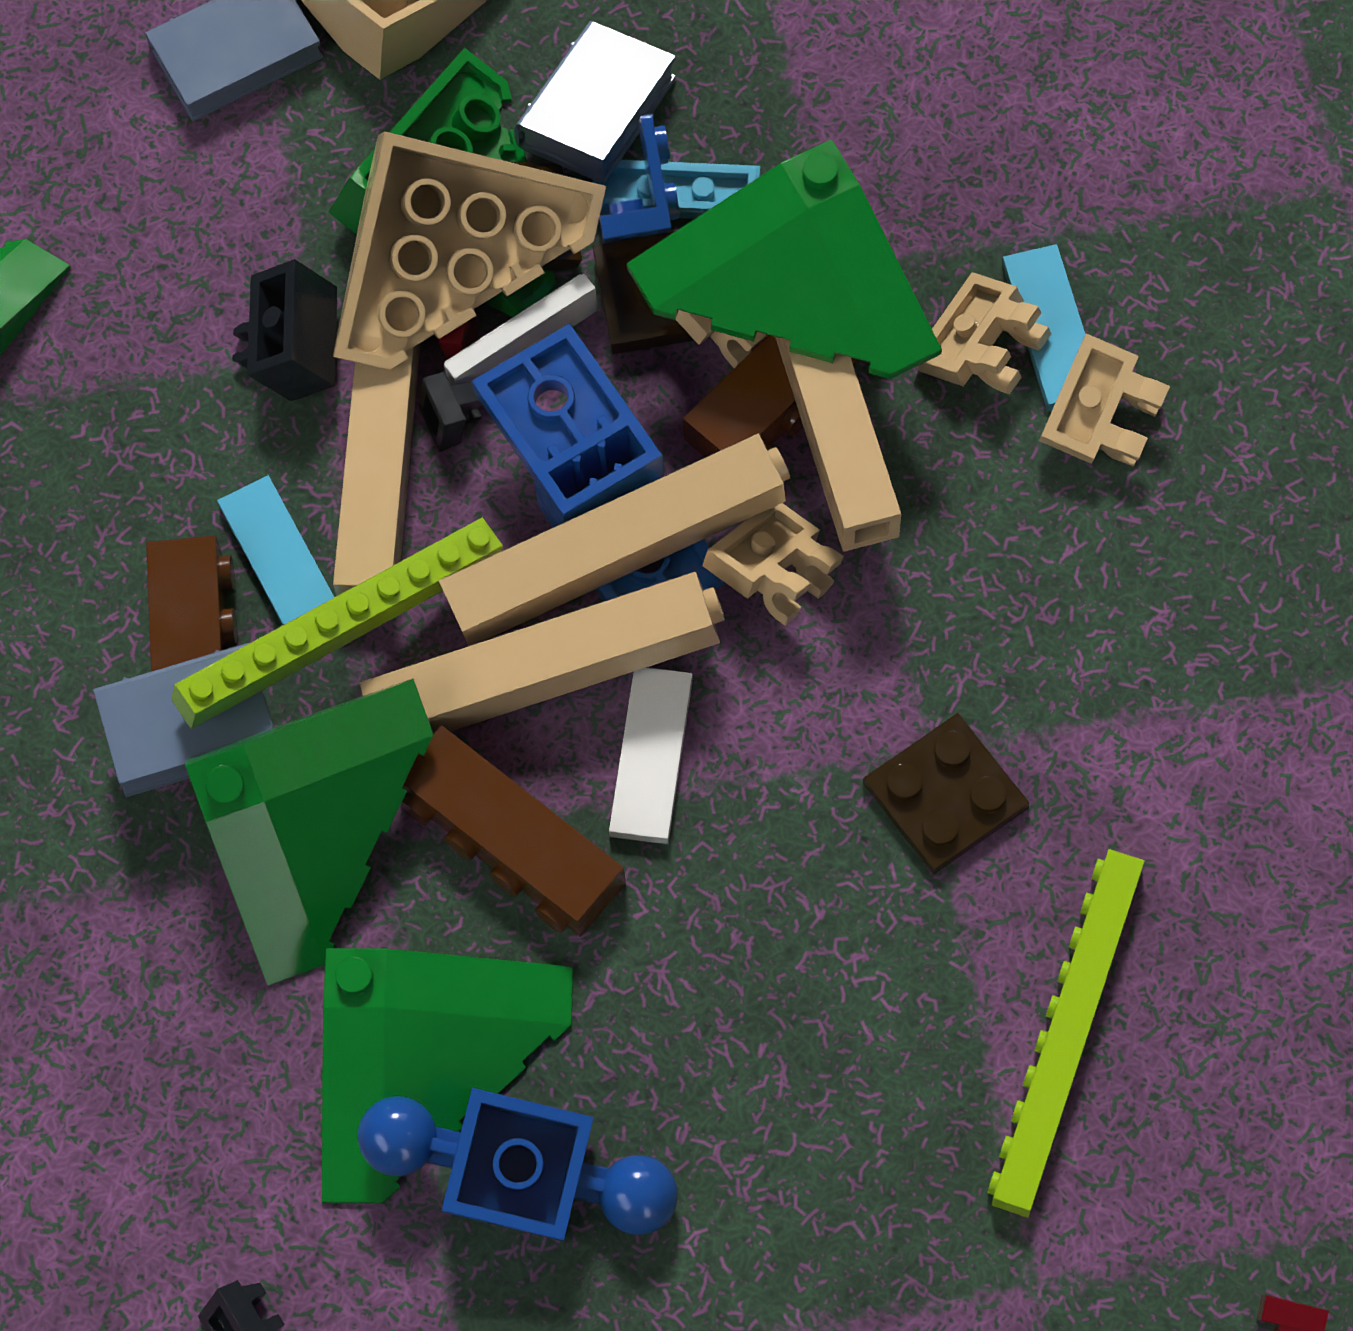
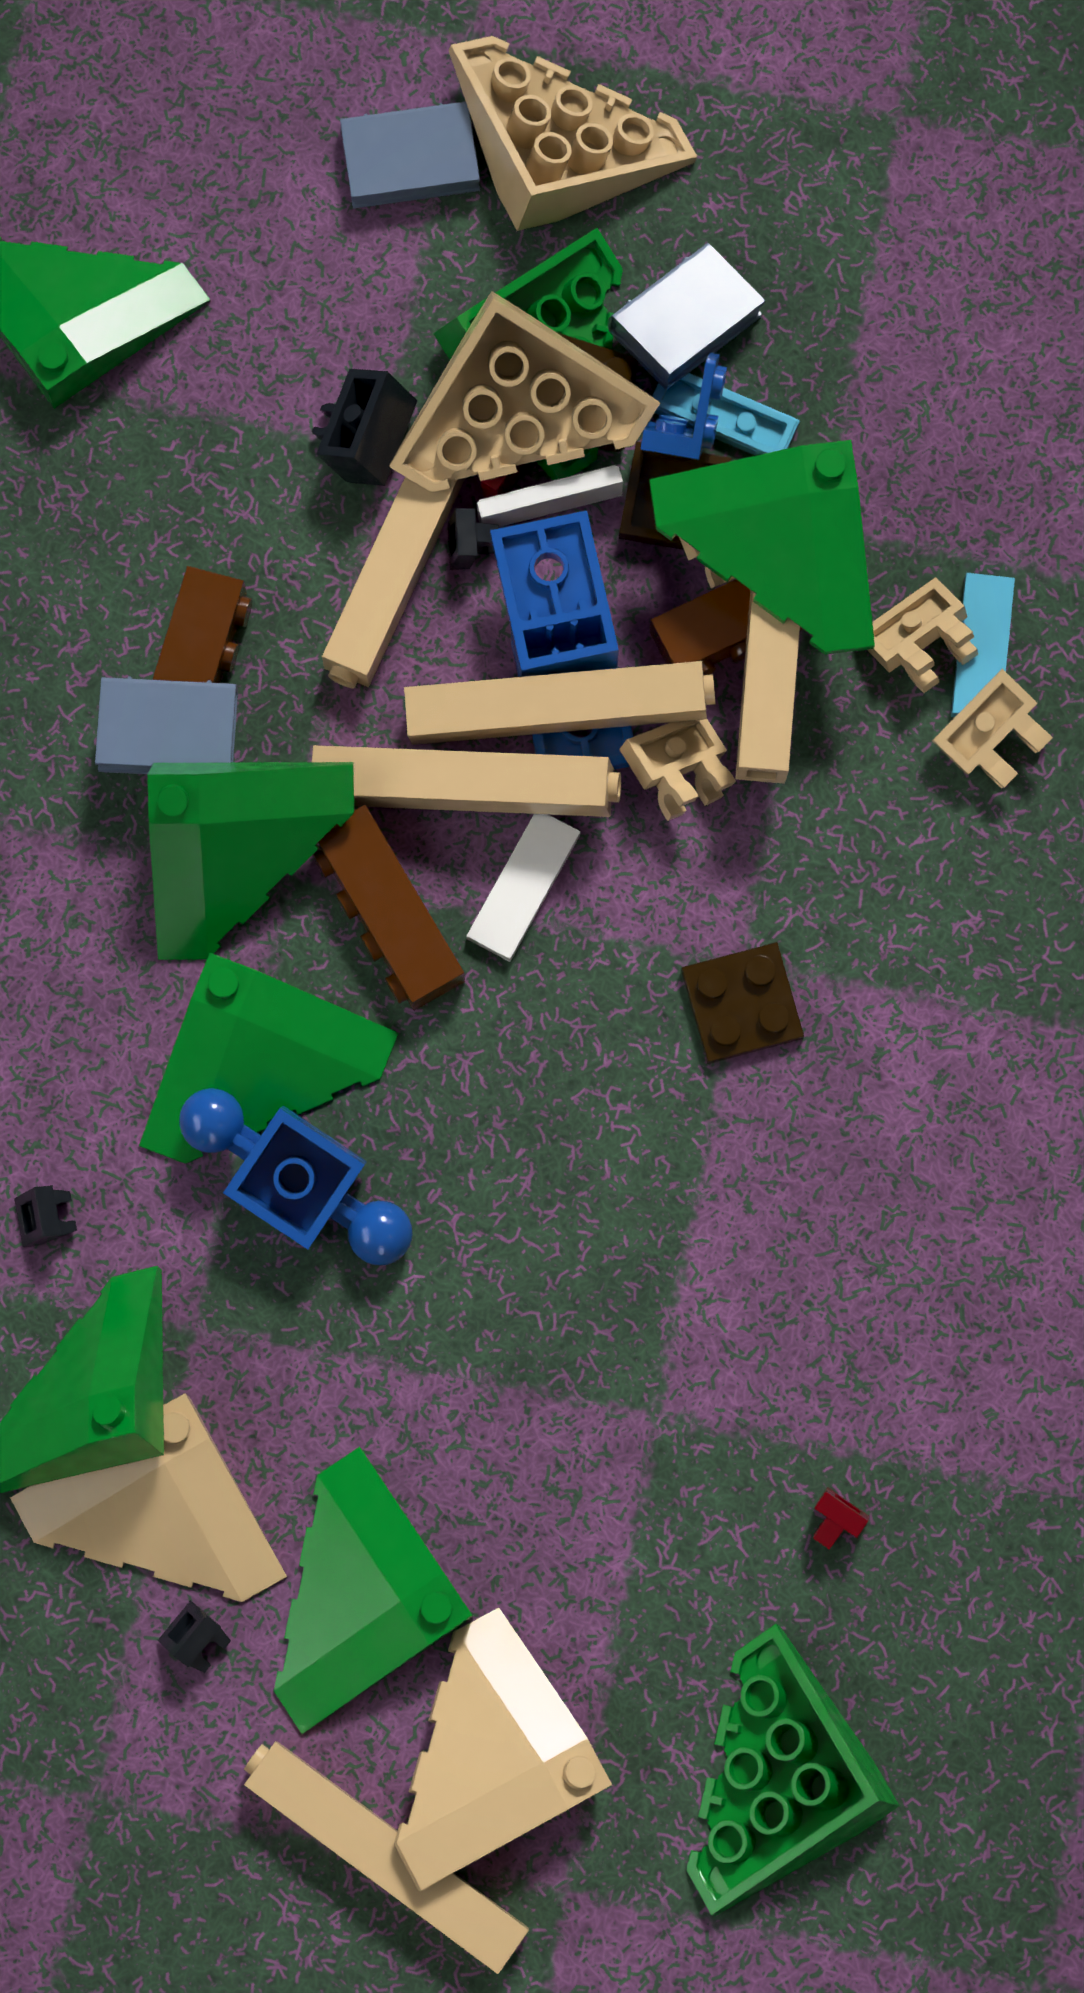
camera: 15 degrees right, 10 degrees up
(275, 549) = (290, 615): medium azure tile -> none
(330, 625) = (309, 693): lime piece -> none
(1064, 1042) = (763, 1226): lime piece -> none

